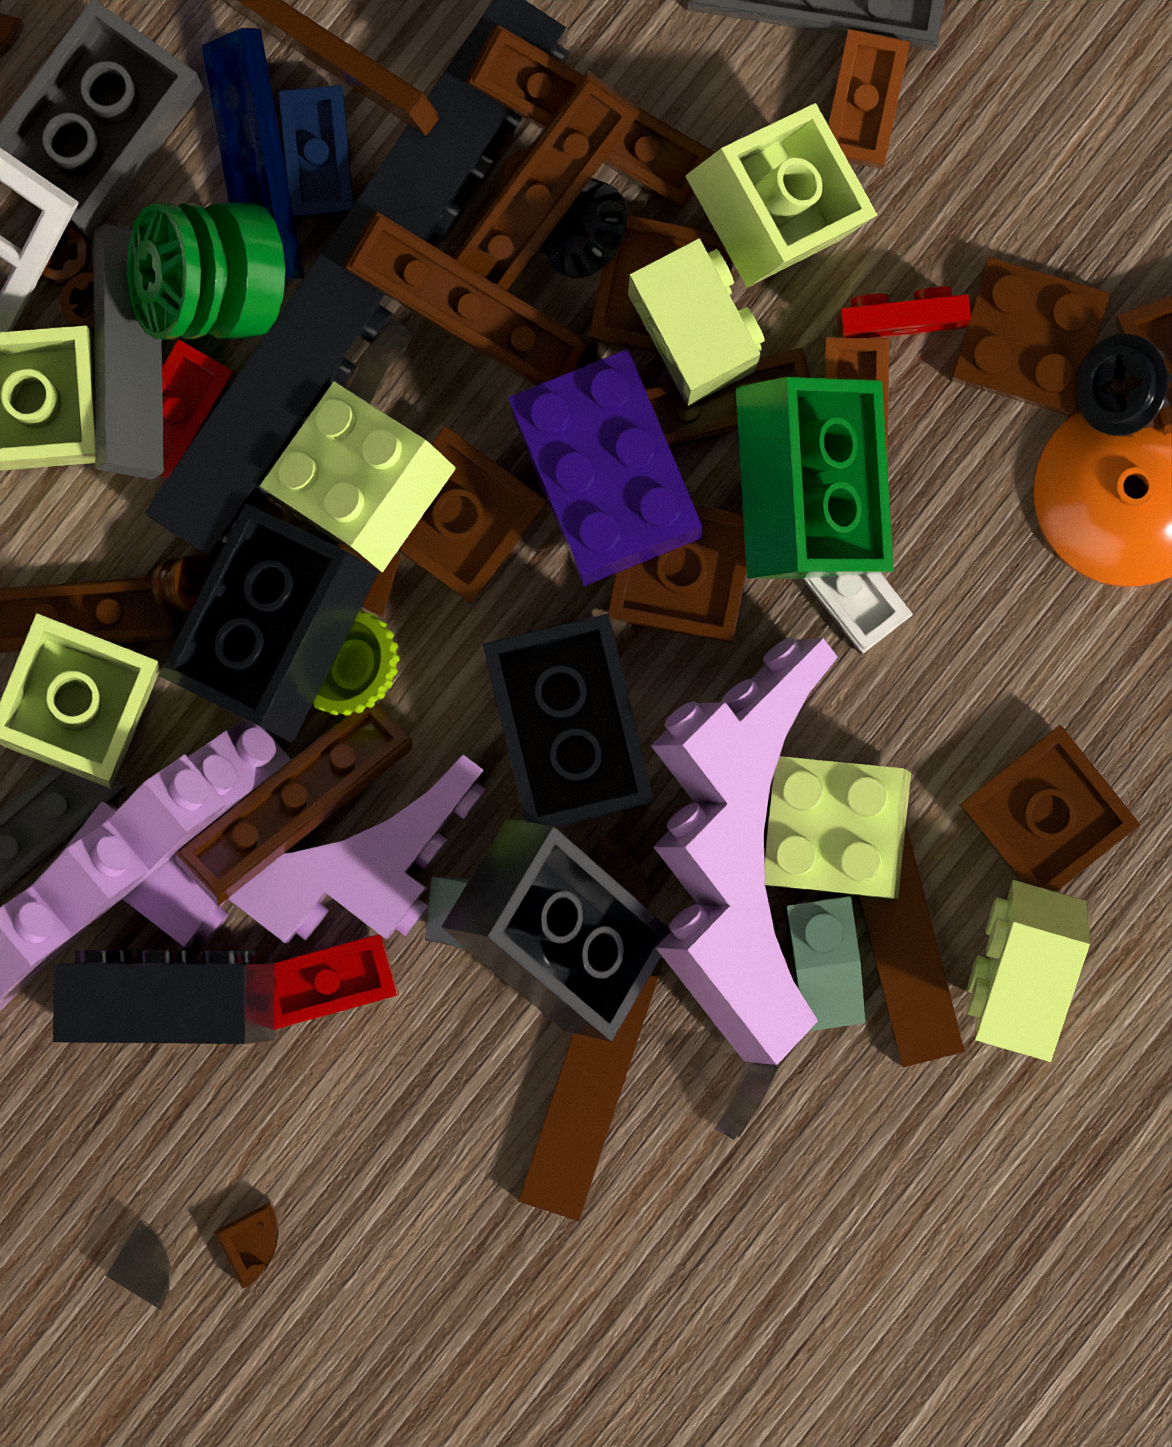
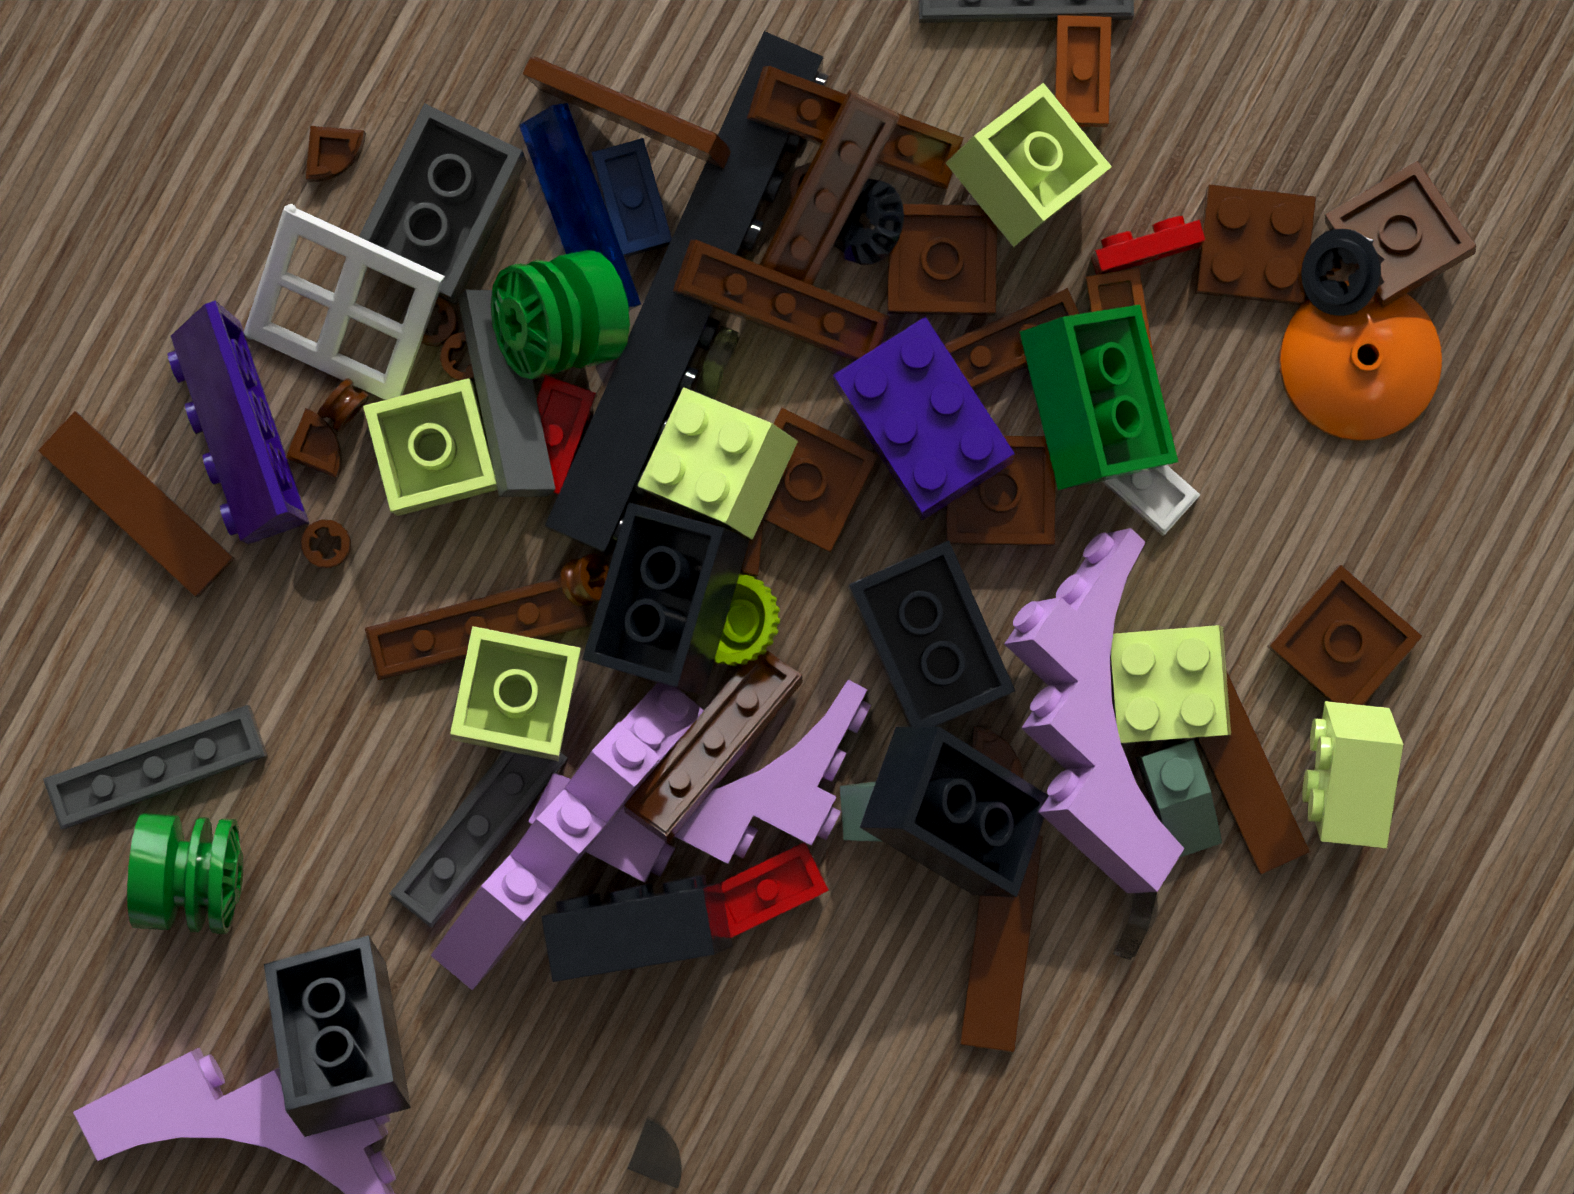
camera: 10 degrees left, 0 degrees up
(250, 1242) = (742, 1119): reddish brown tile -> none
(695, 321) = (978, 283): yellowish green brick -> none

